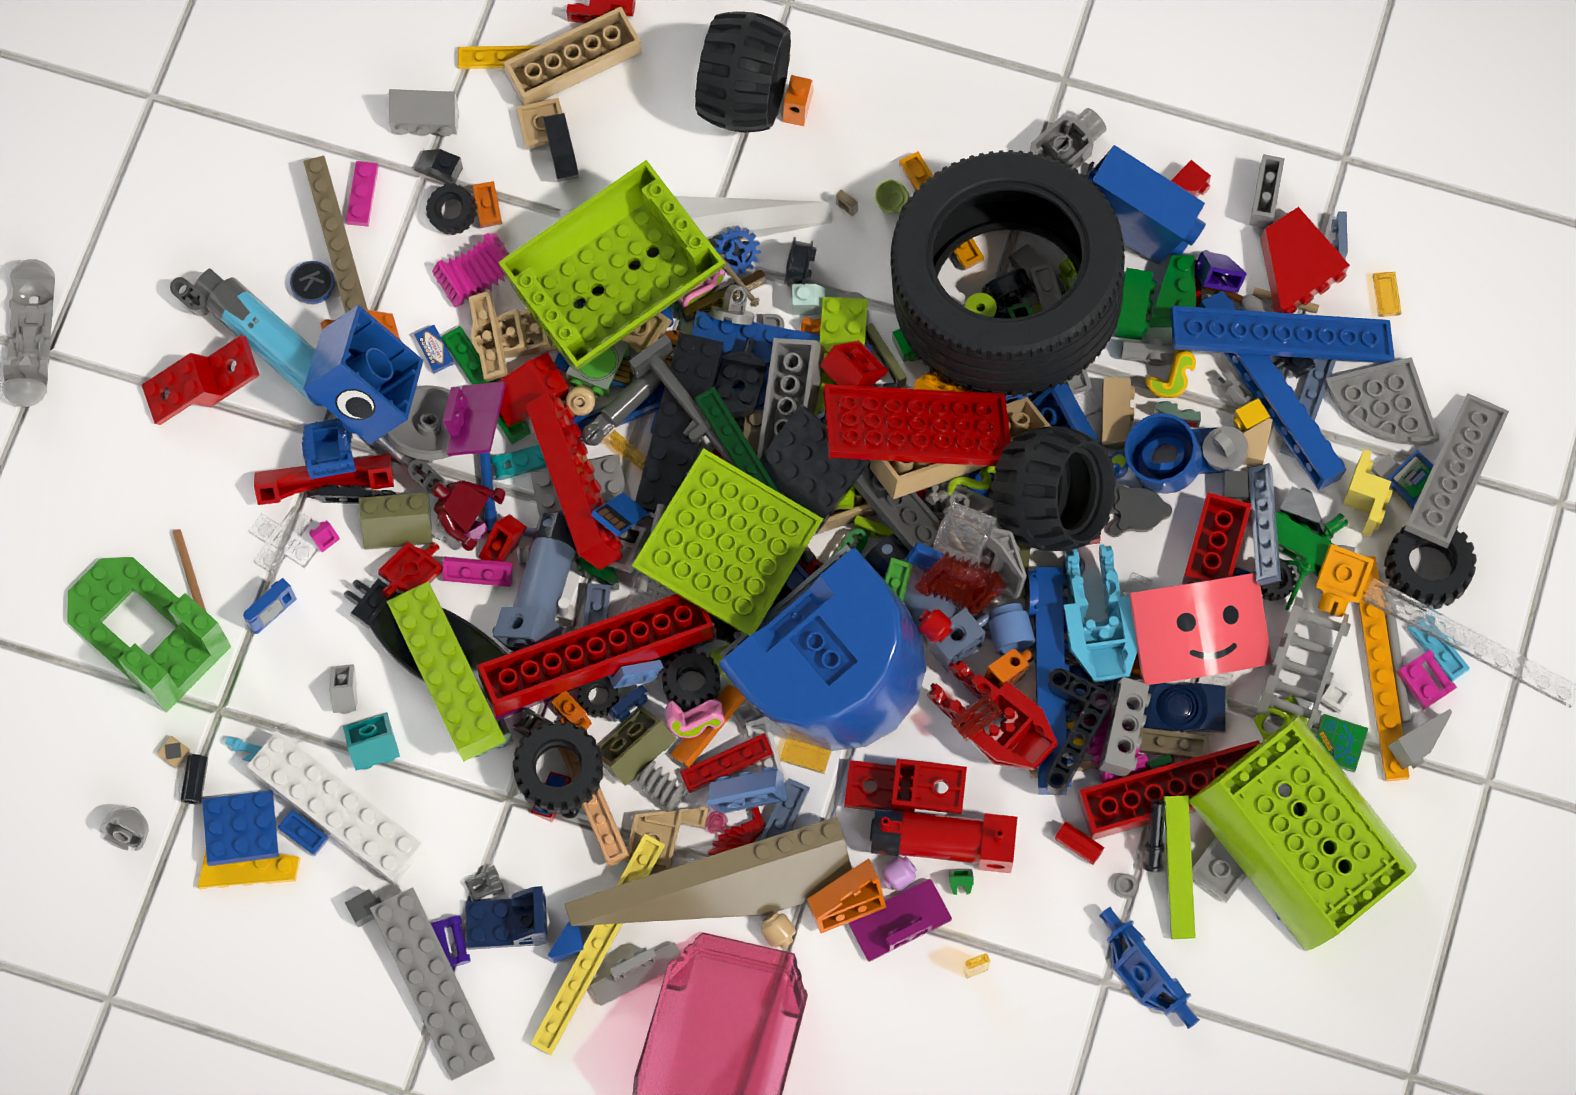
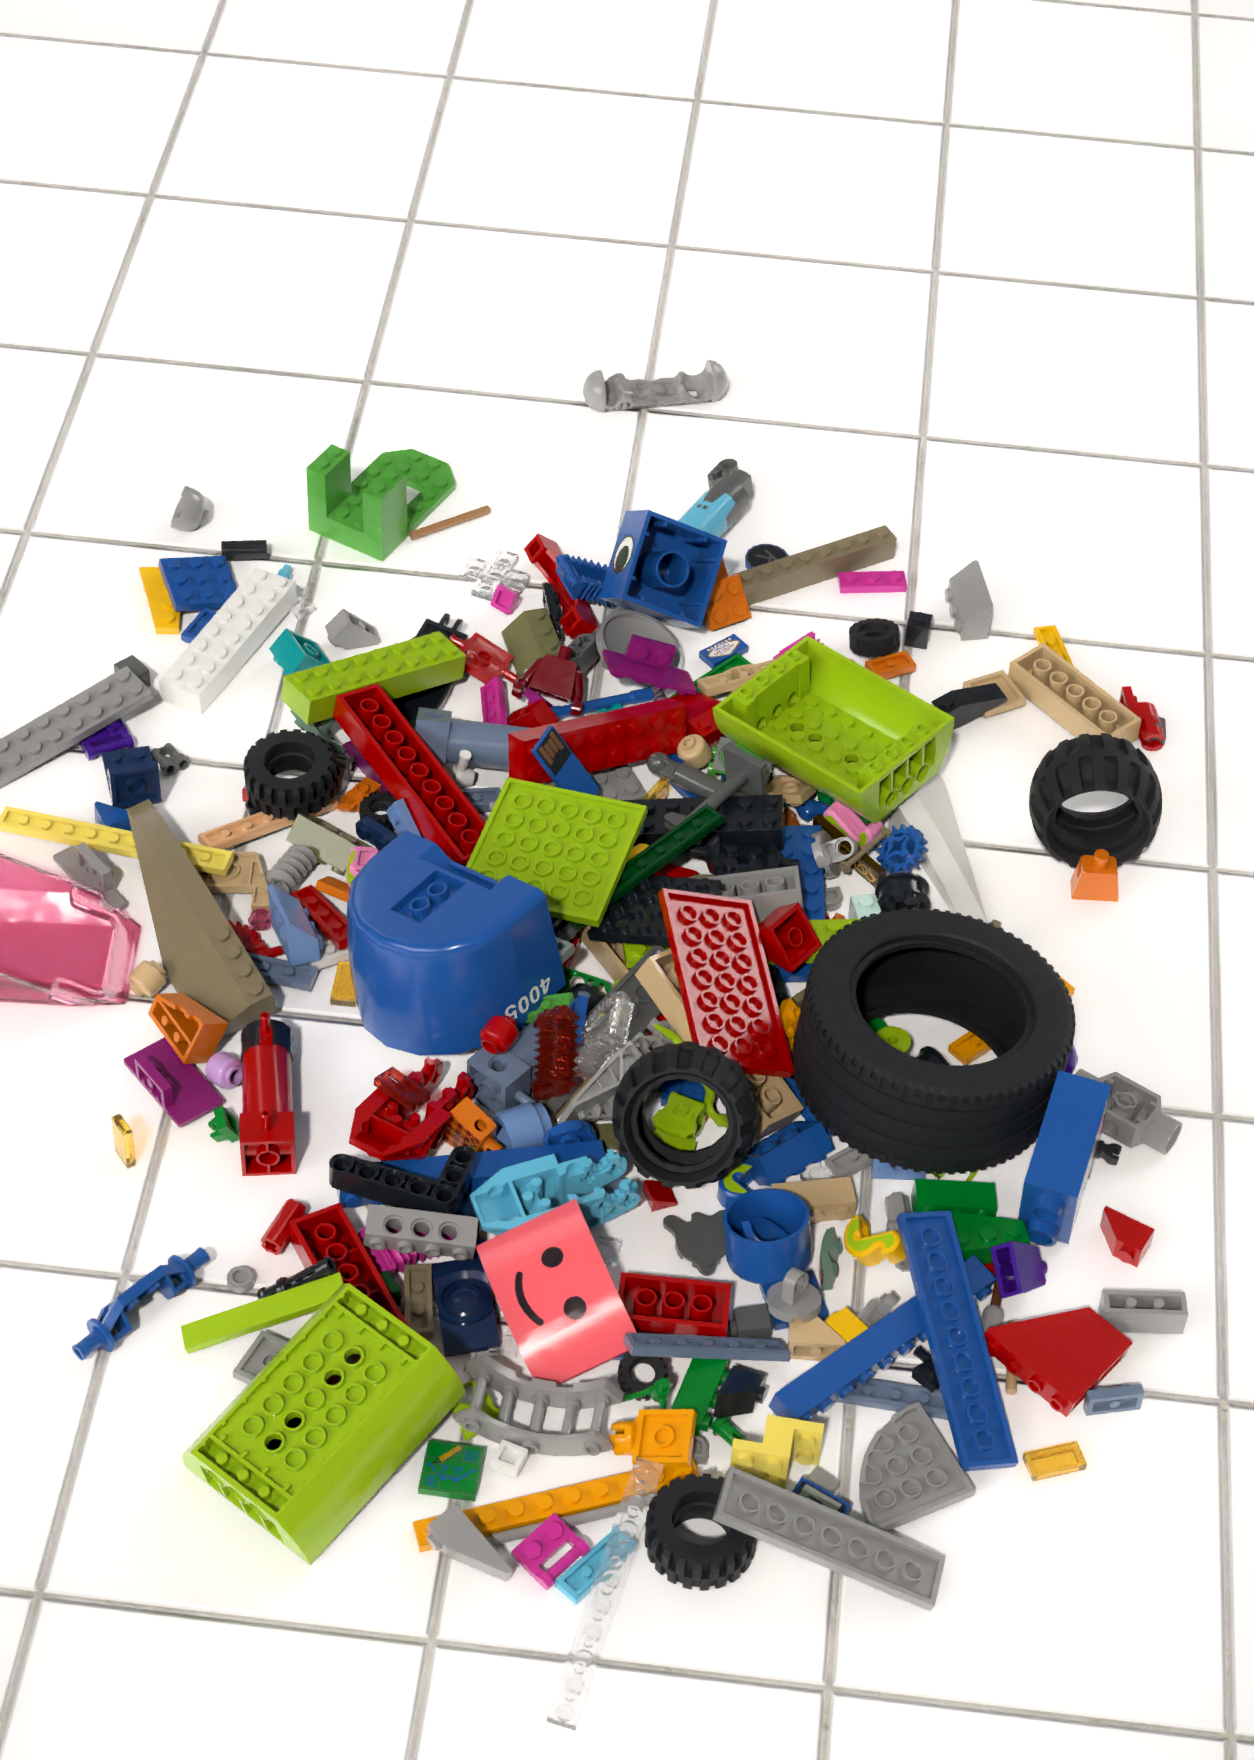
camera: 75 degrees right, 25 degrees down
(173, 752) = (271, 535): tan tile -> none
(200, 380) = (638, 490): red bracket -> none
(269, 606) = (417, 564): blue container -> none
(906, 786) = (319, 1058): red bracket -> none

